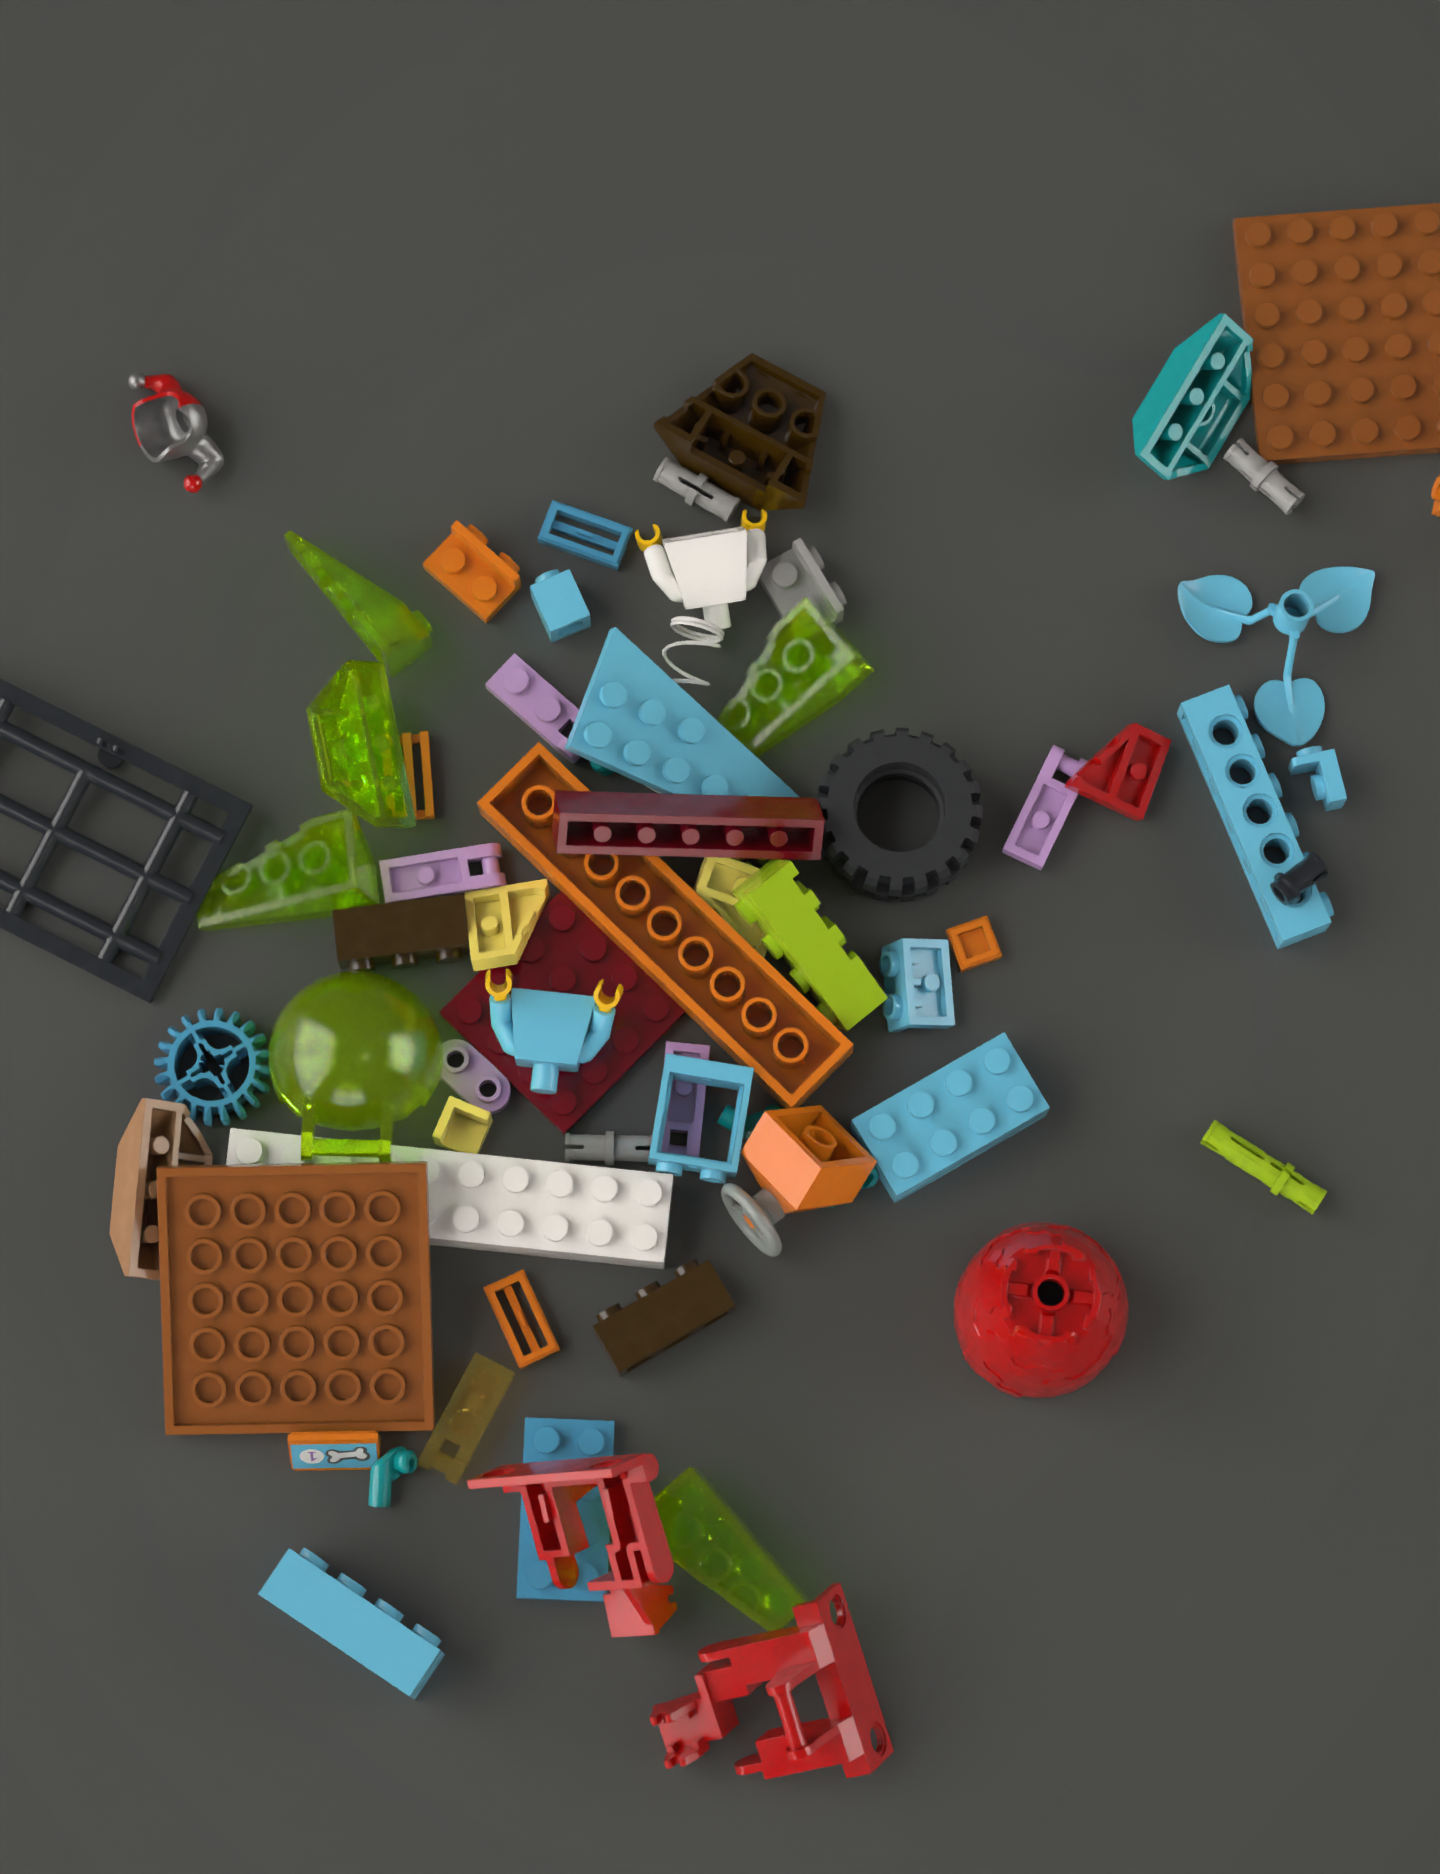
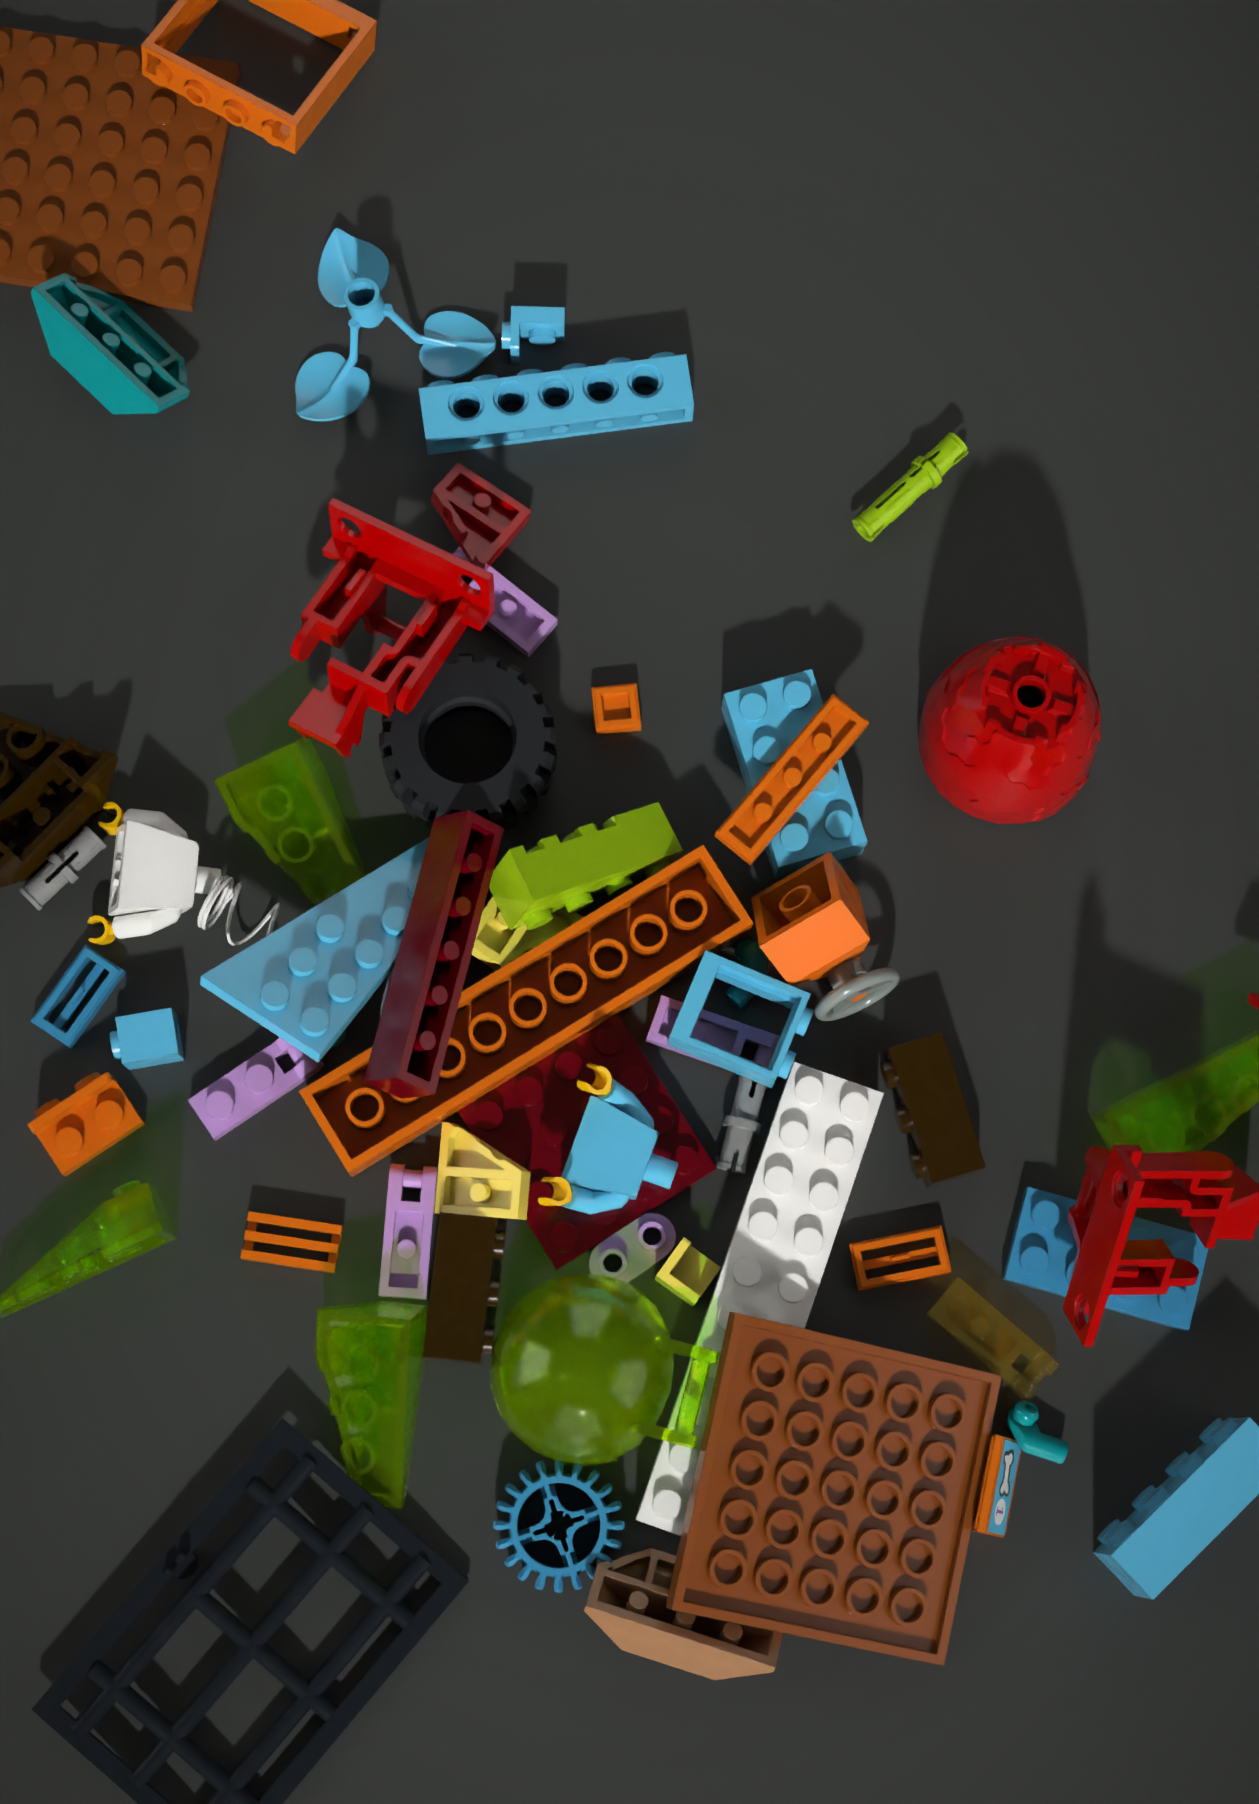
camera: 80 degrees left, 0 degrees up
(361, 746) = (252, 1283): clear neon green wedge -> none
(799, 575) = (188, 788): light grey bracket -> none
(917, 984) = (646, 771): medium azure bracket -> none
(935, 1110) = (791, 779): none -> orange tile
(1020, 678) = (359, 590): none -> red container
(1264, 476) = (208, 305): light grey pin -> none
(1298, 879) = (643, 379): black pin -> none

